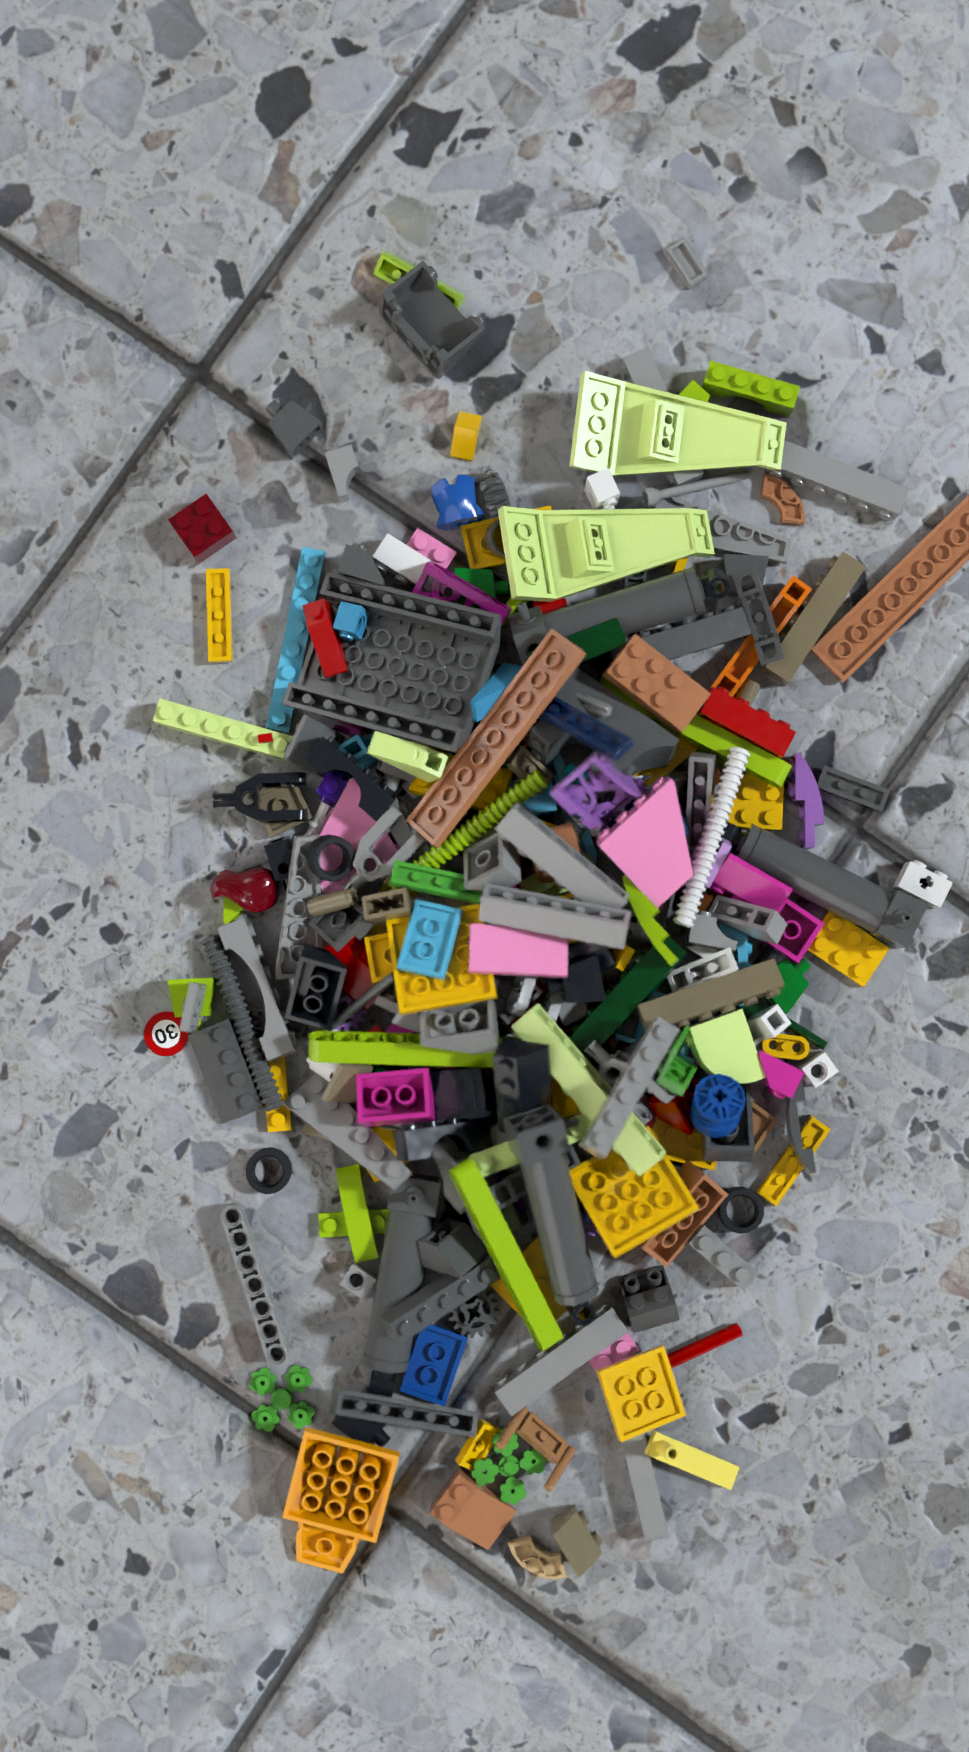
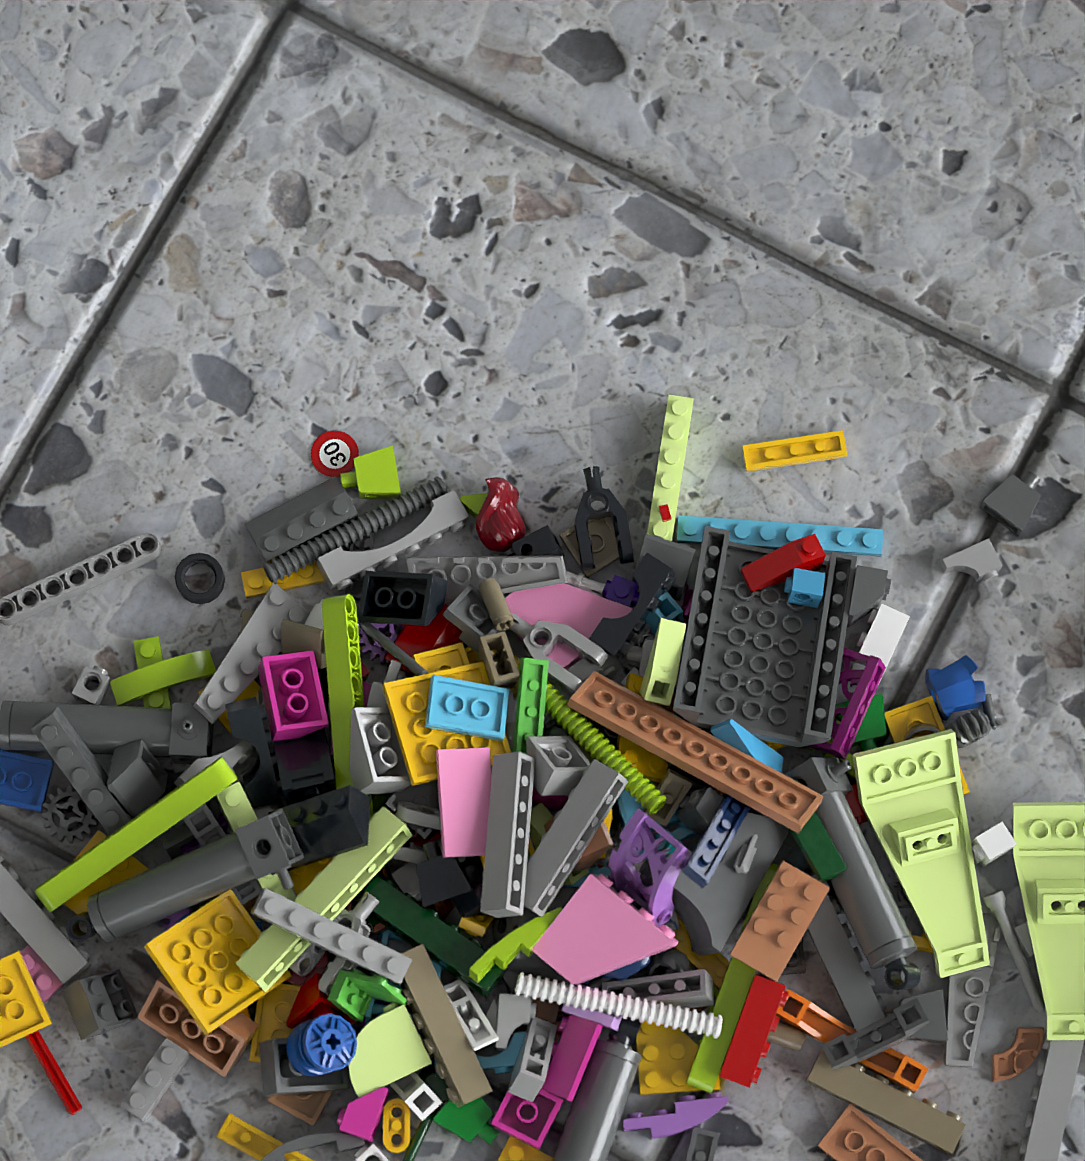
camera: 80 degrees right, 10 degrees down
(192, 1006) = (366, 473): light grey plate -> none
(202, 528) = (886, 421): dark red brick -> none
(314, 853) = (552, 579): black tyre -> none
(432, 548) = (900, 668): bright pink plate -> none
(465, 436) = (1035, 690): yellow slope -> none
(758, 1210) = (189, 1088): black tyre -> none

